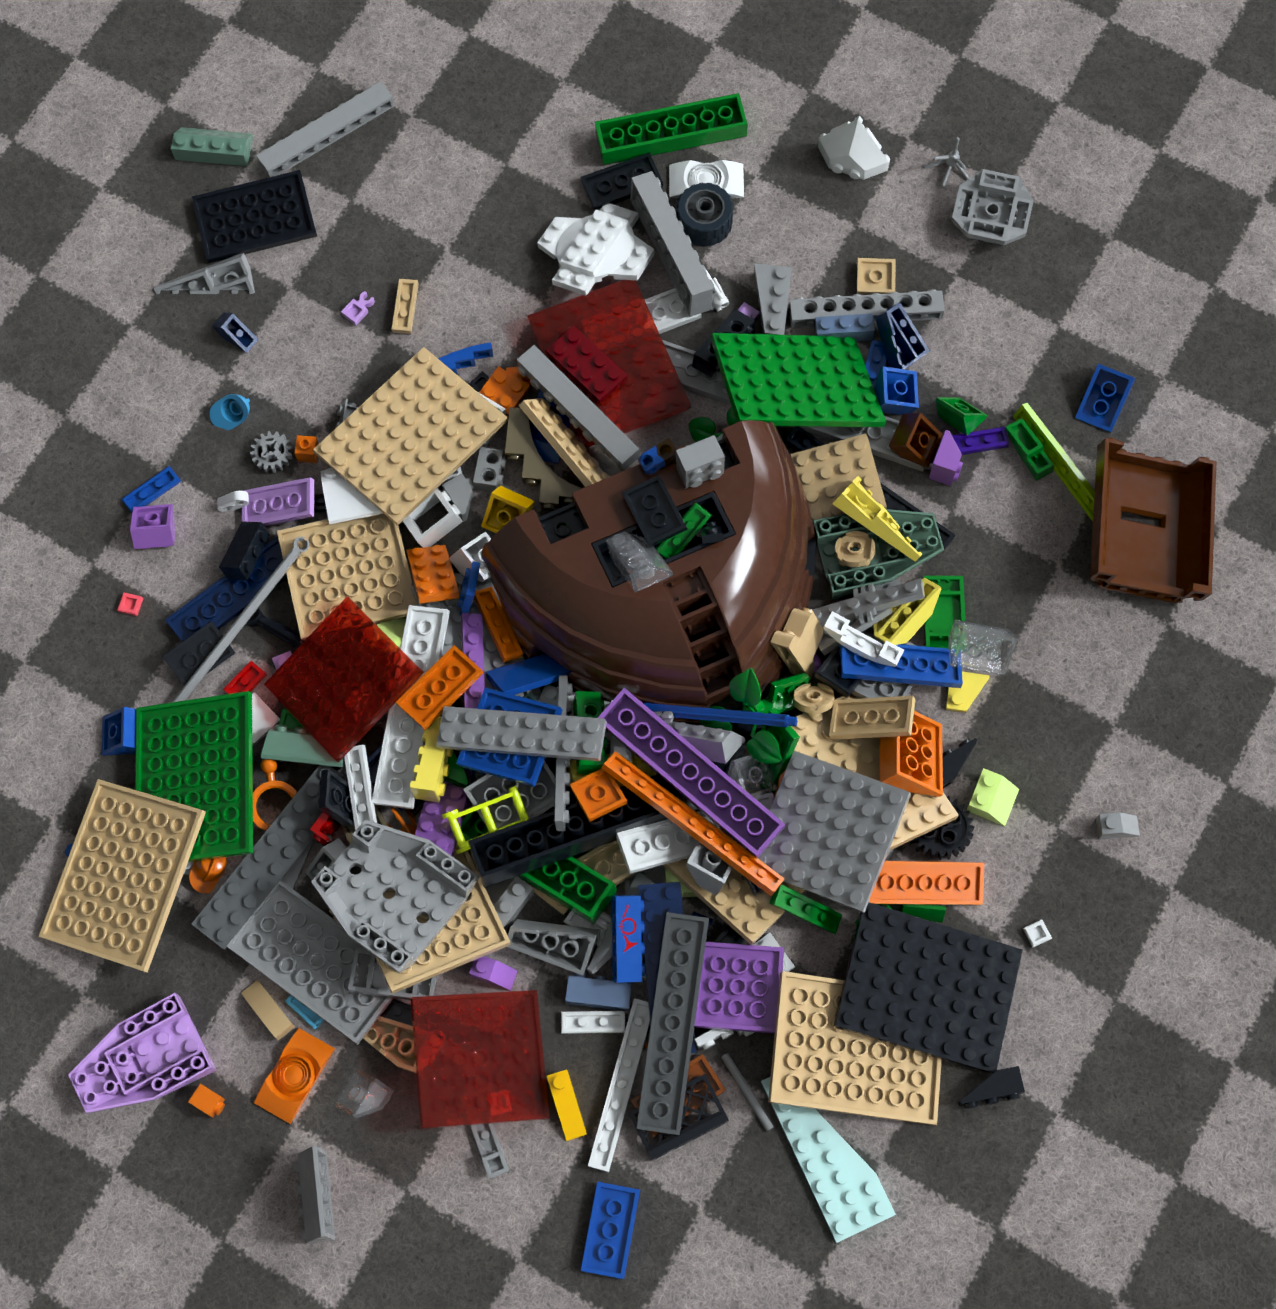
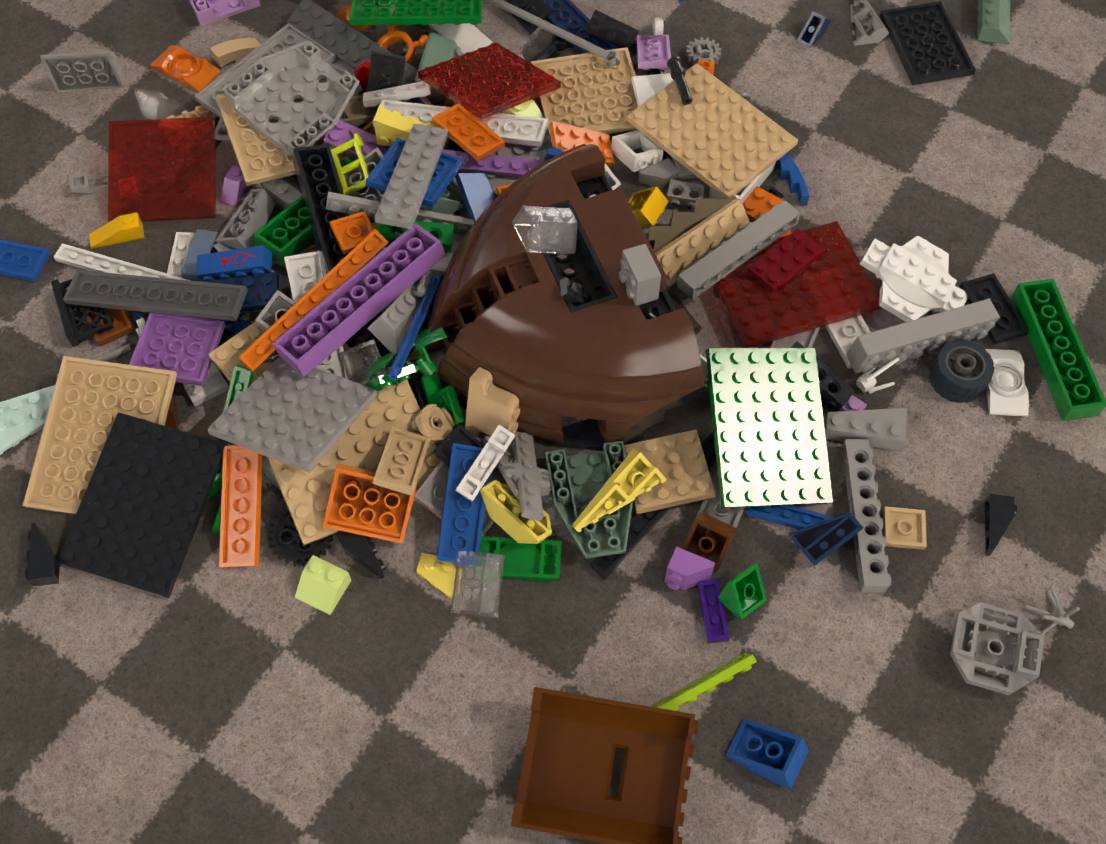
camera: 90 degrees right, 10 degrees down
(207, 1101) = (176, 16): orange brick -> none
(230, 411) = (740, 26): dark azure piece -> none
(246, 679) = (503, 37): red plate -> none
(325, 130) = (1020, 89): light grey brick -> none
(341, 465) = (678, 76): none -> black pin
(357, 310) = (841, 108): lavender plate -> none
(405, 306) = (845, 141): tan plate -> none
(654, 511) = (594, 243): black plate -> none
(658, 457) = (655, 247): leg -> none
(694, 520) = (578, 273): green tile -> none
(853, 151) = (1048, 512): white wedge -> none
(855, 326) = (840, 488): sand blue brick -> none
(858, 558) = (582, 481): tan plate -> none
(862, 198) = (998, 515): none -> black slope
(897, 390) = (766, 527): blue slope -> none
(1029, 449) = (703, 661): green slope -> none
(1037, 933) = (181, 615): white tile -> none
(1116, 825) = (273, 703): light grey slope -> none

